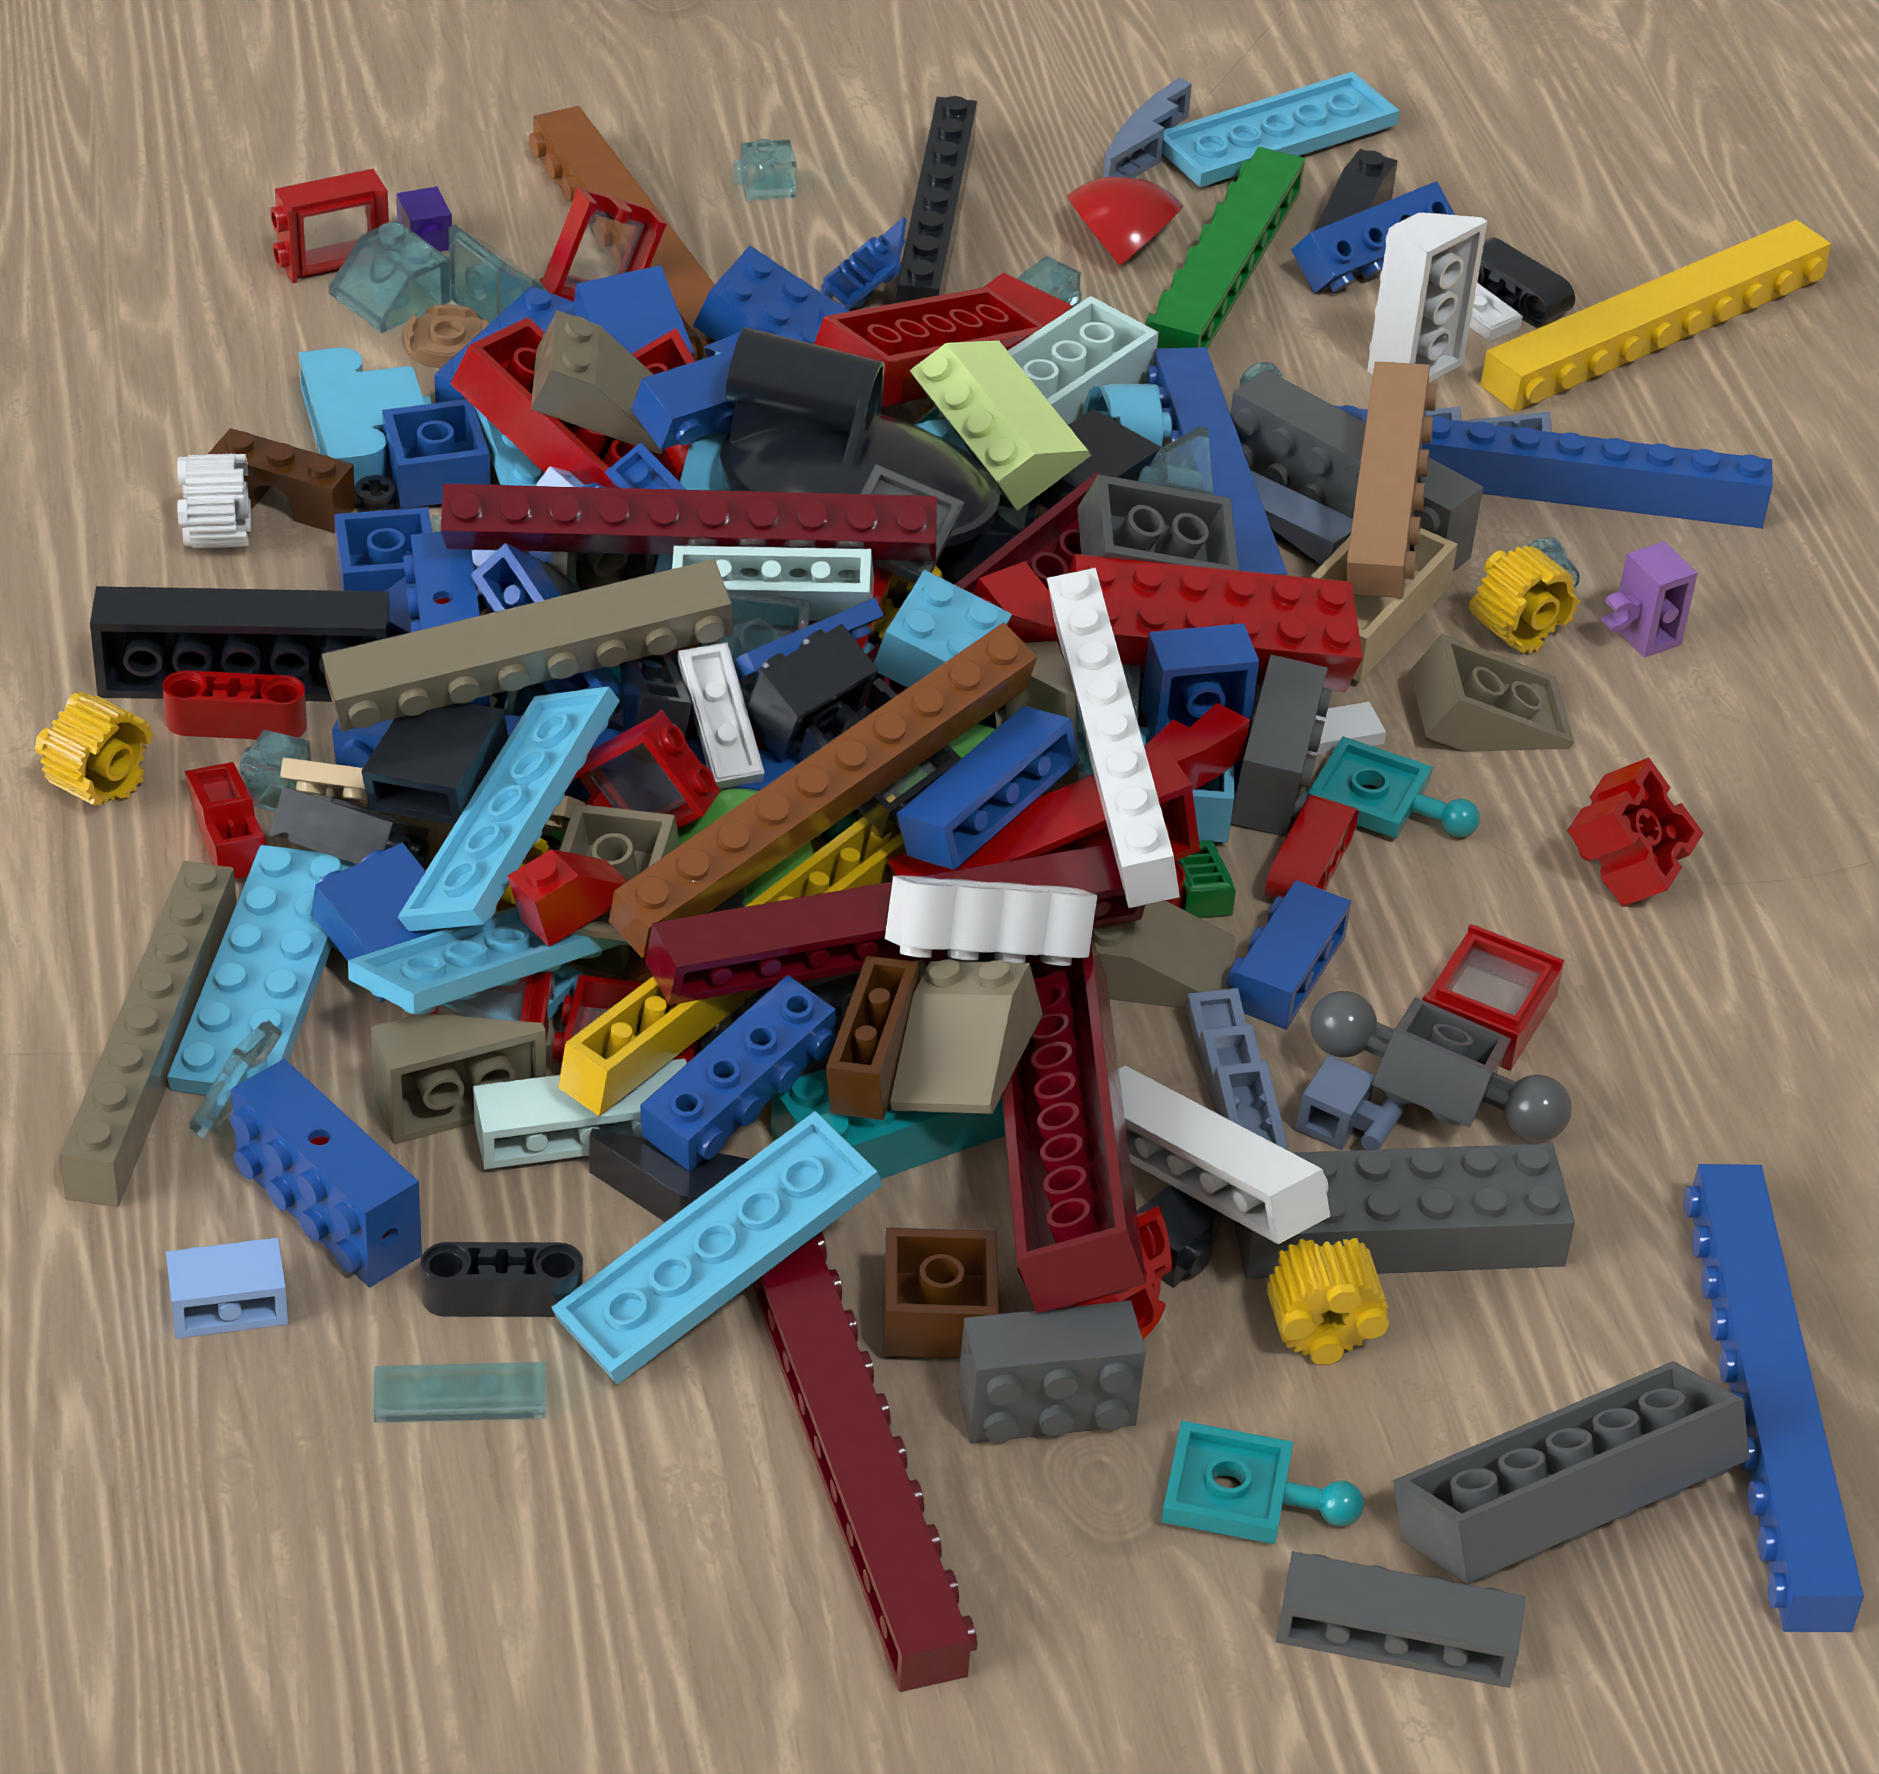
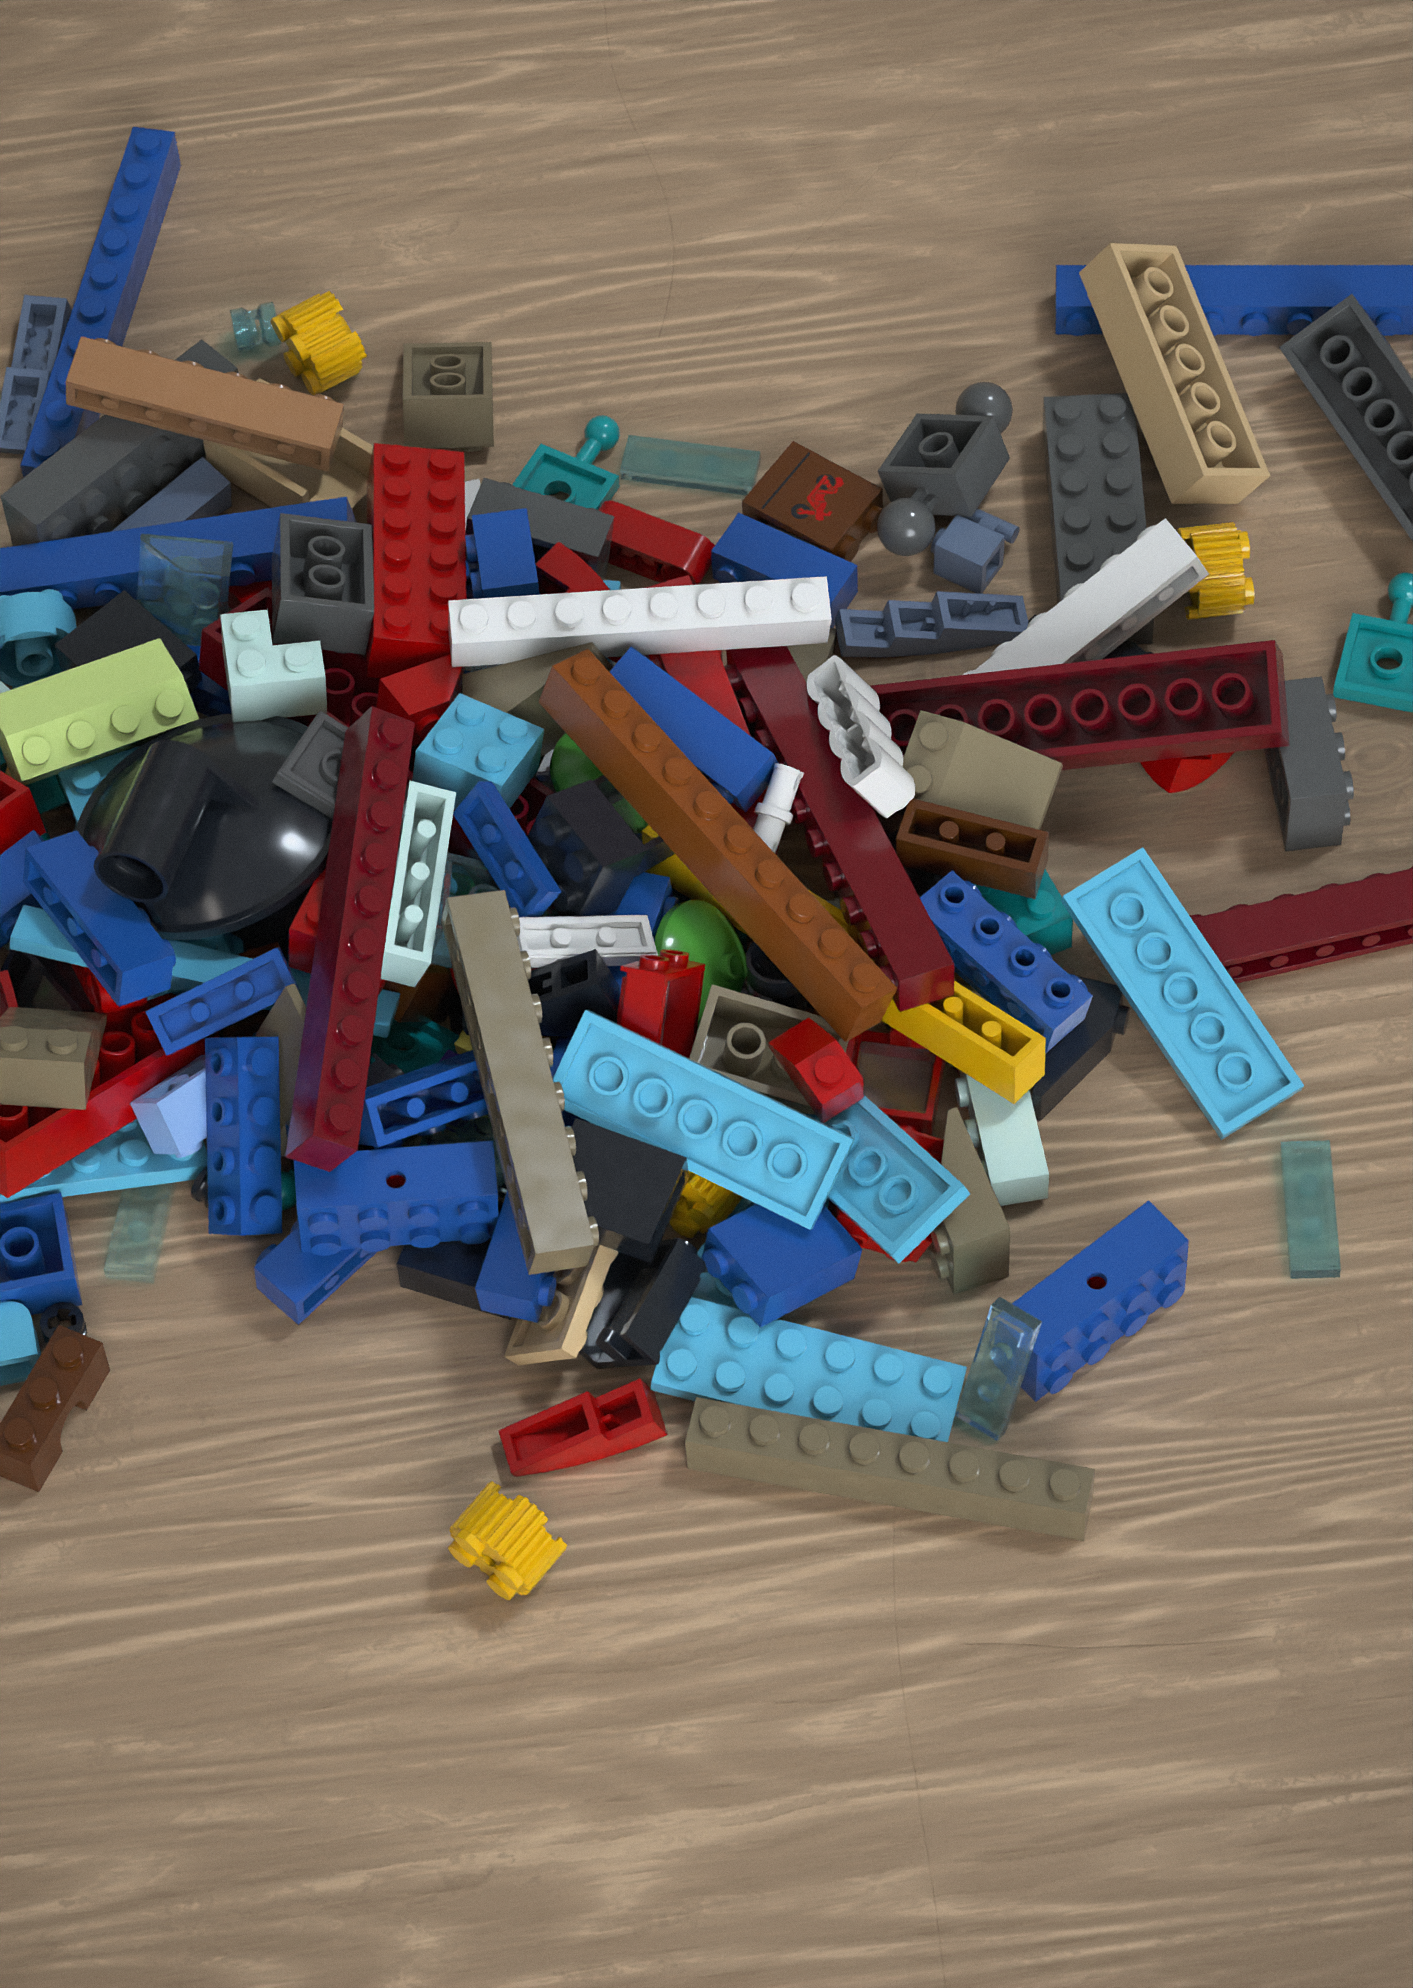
camera: 80 degrees left, 15 degrees up
(157, 631) = (342, 1417): black brick -> none
(214, 500) = (102, 1459): white brick -> none
(227, 1287) = (1210, 1386): light blue brick -> none
(233, 704) = (407, 1405): red beam -> none
(263, 764) = (525, 1381): clear light blue brick -> none
(373, 546) = (205, 1296): blue brick -> none
(498, 1278) = (1194, 1147): black beam -> none
(893, 860) = (776, 805): none -> white pin
(934, 1284) = (1211, 841): reddish brown brick -> none
(1031, 488) = (267, 677): none -> light aqua brick
(1383, 962) = (816, 501): none -> reddish brown panel
(1435, 893) = (690, 465): none -> clear light blue tile
(1498, 987) = (836, 424): red window -> none
(1596, 1243) = (1174, 374): none -> tan brick
(1635, 832) = (656, 298): red brick -> none
(1652, 599) = (327, 246): medium lavender brick -> none

